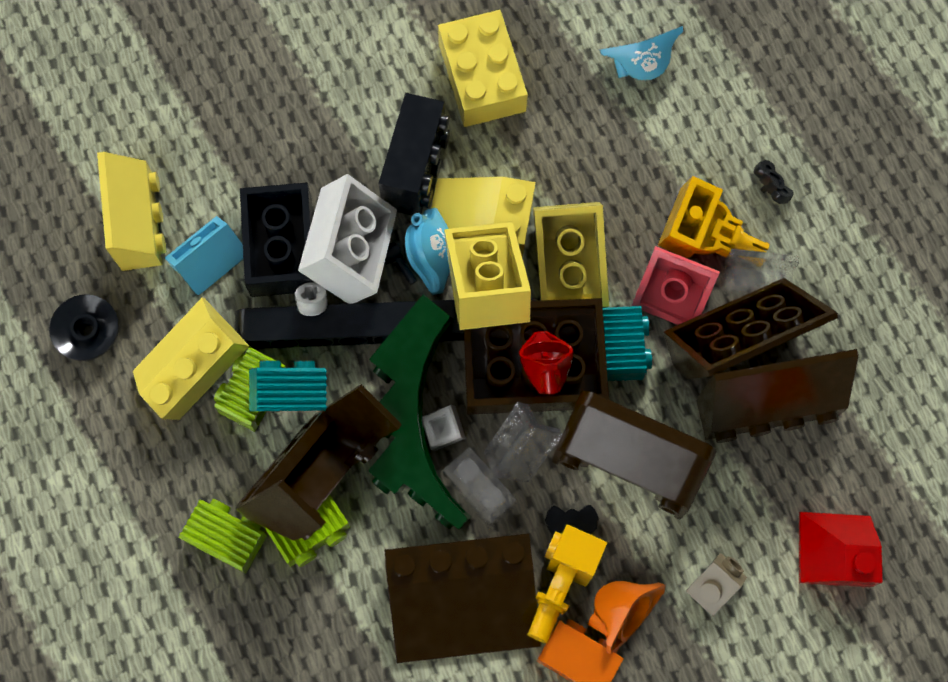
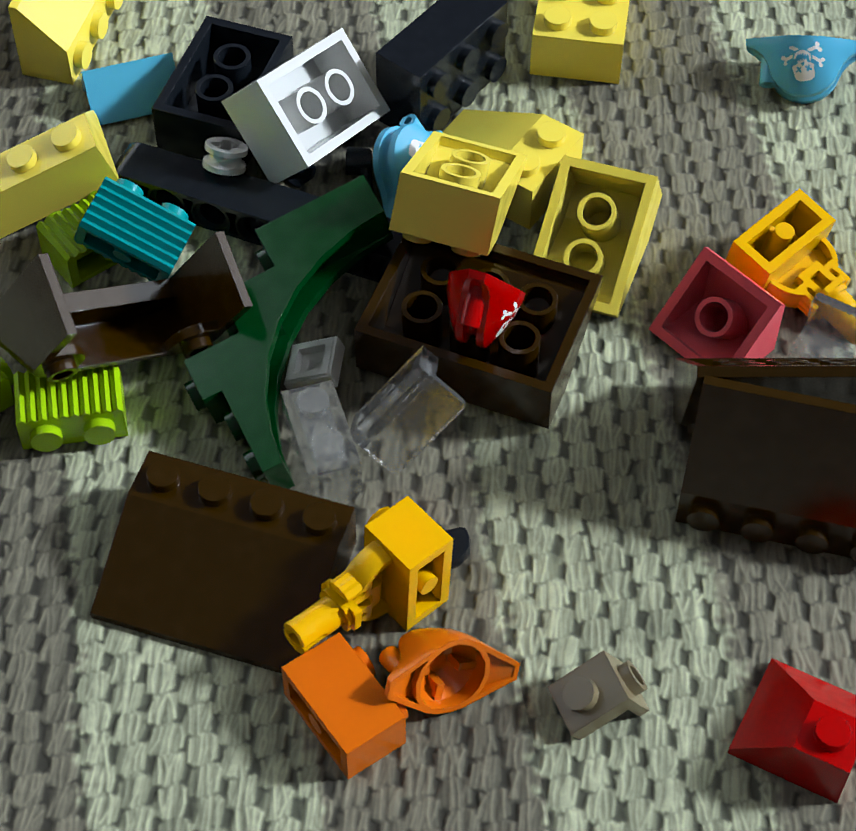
camera: 25 degrees right, 20 degrees down
(625, 343) = (610, 359): teal brick -> none
(635, 451) = (566, 453): dark brown windscreen -> none

